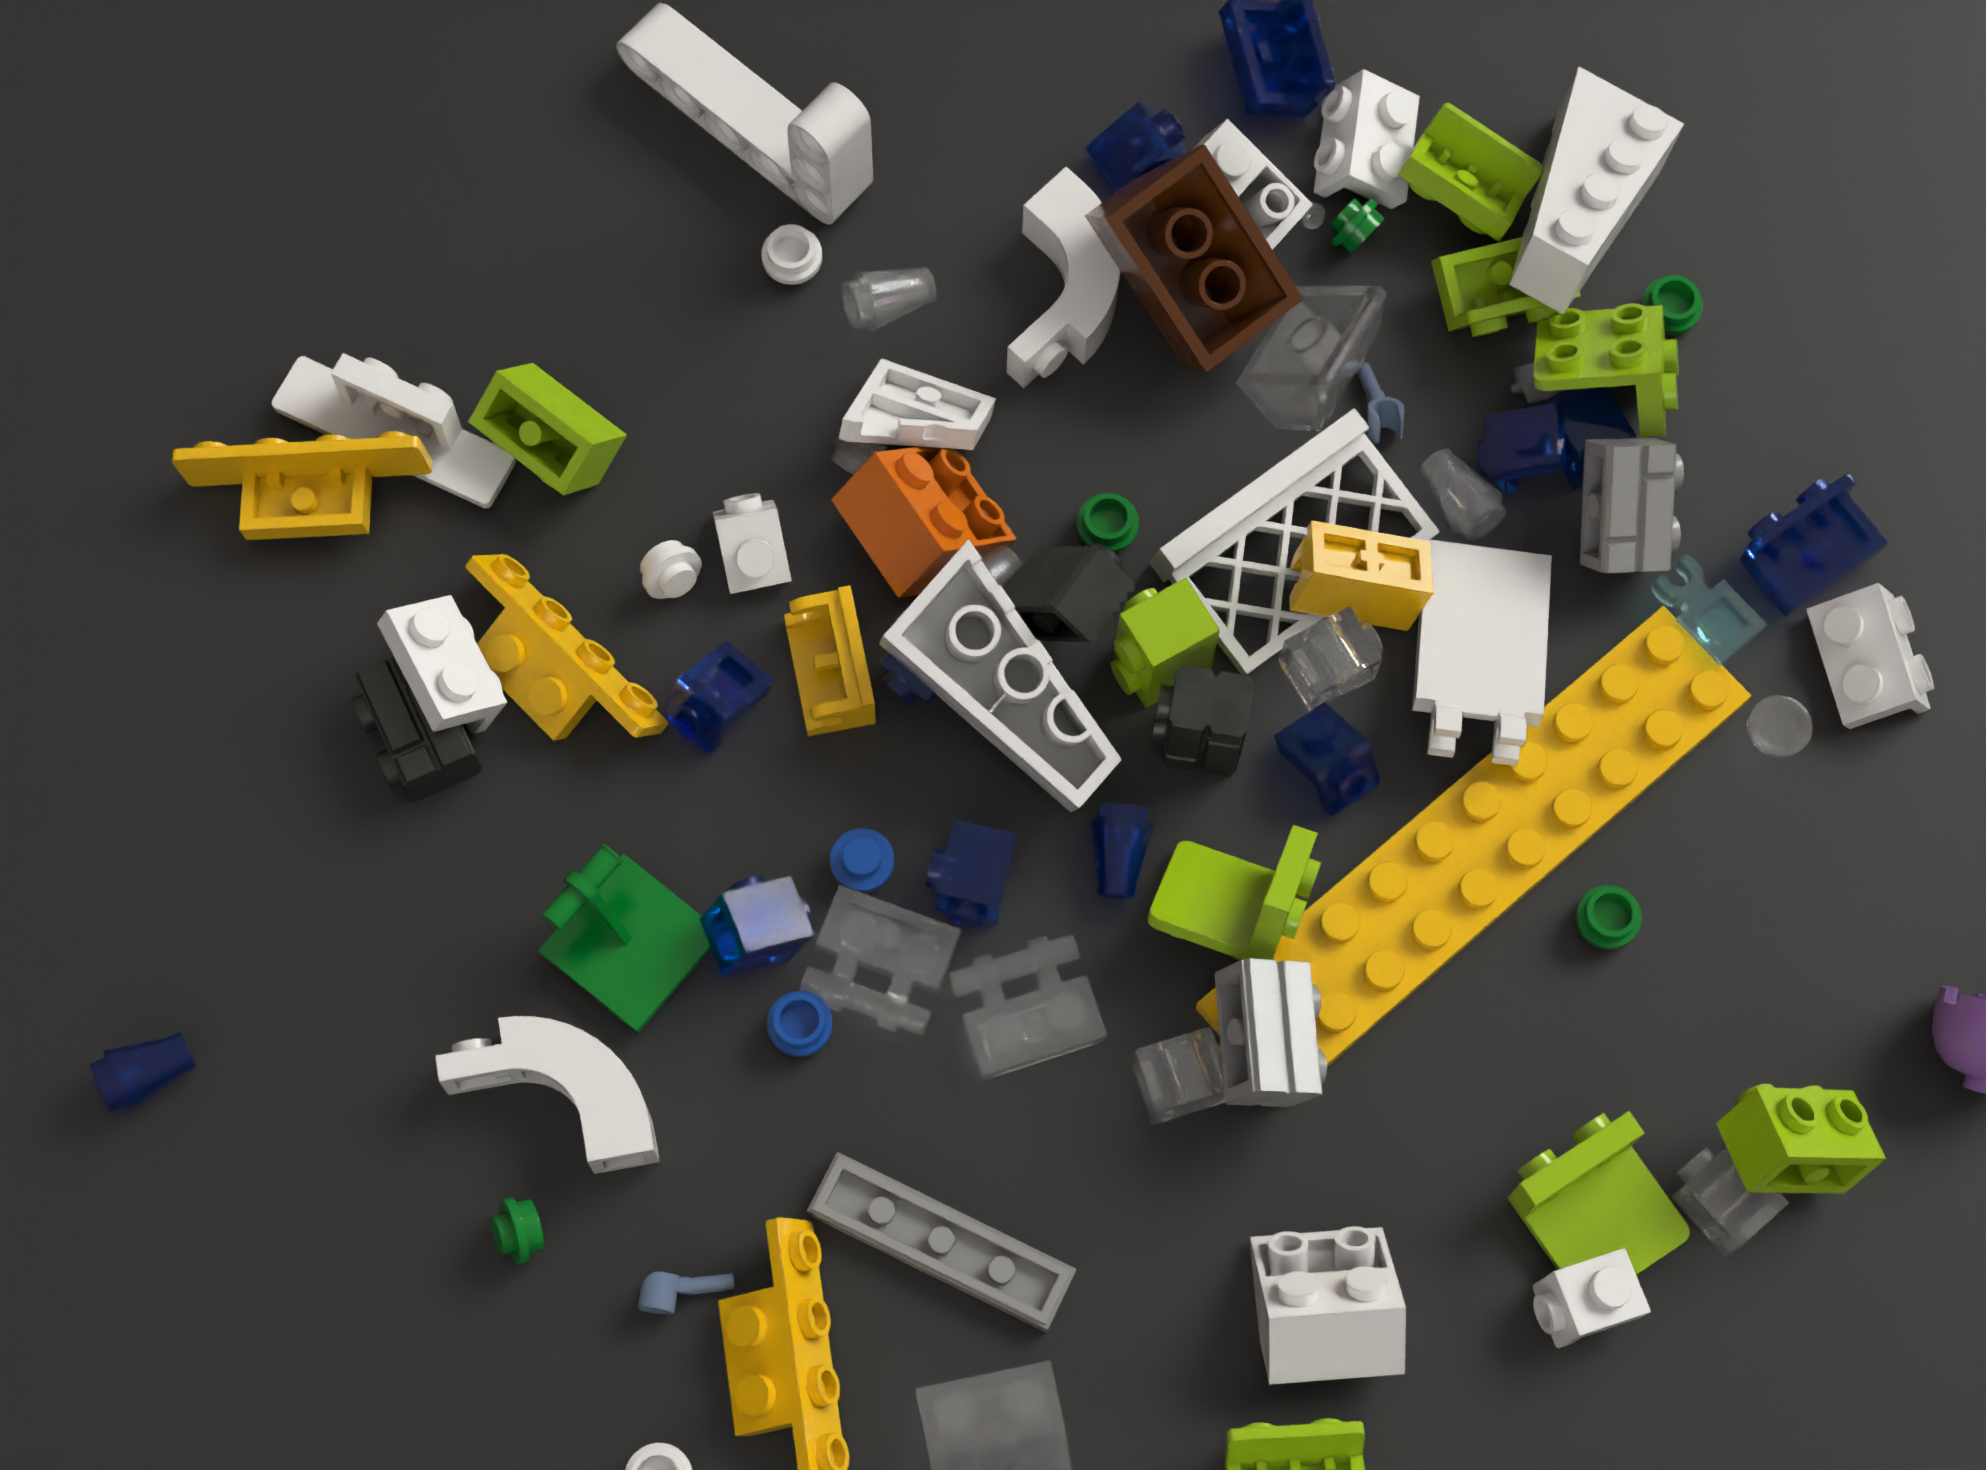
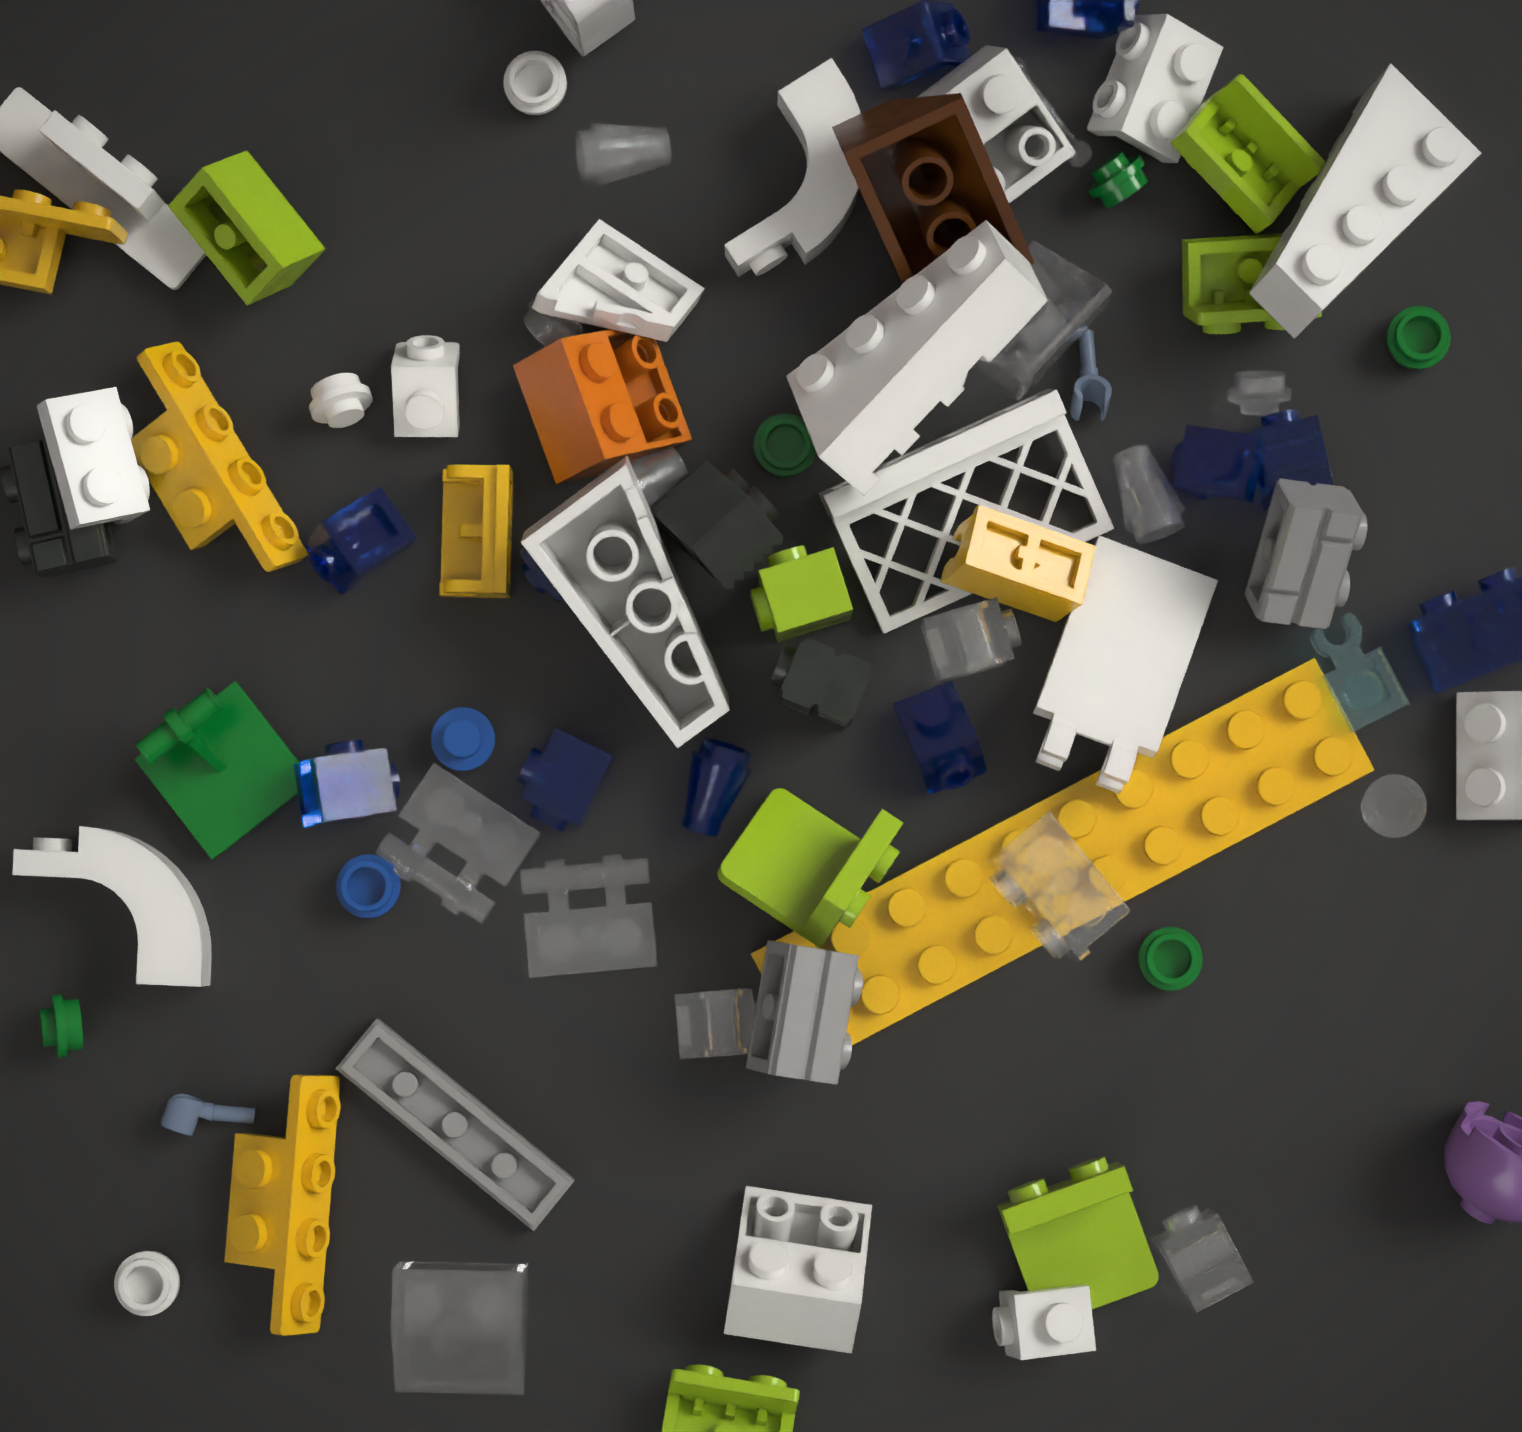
camera: 15 degrees right, 15 degrees up
(1214, 393) = (912, 352): none -> white wedge
(1482, 864) = (1058, 887): none -> clear bracket
(1609, 351) = (1330, 391): lime bracket -> none
(1800, 1140) = (1281, 1225): lime brick -> none

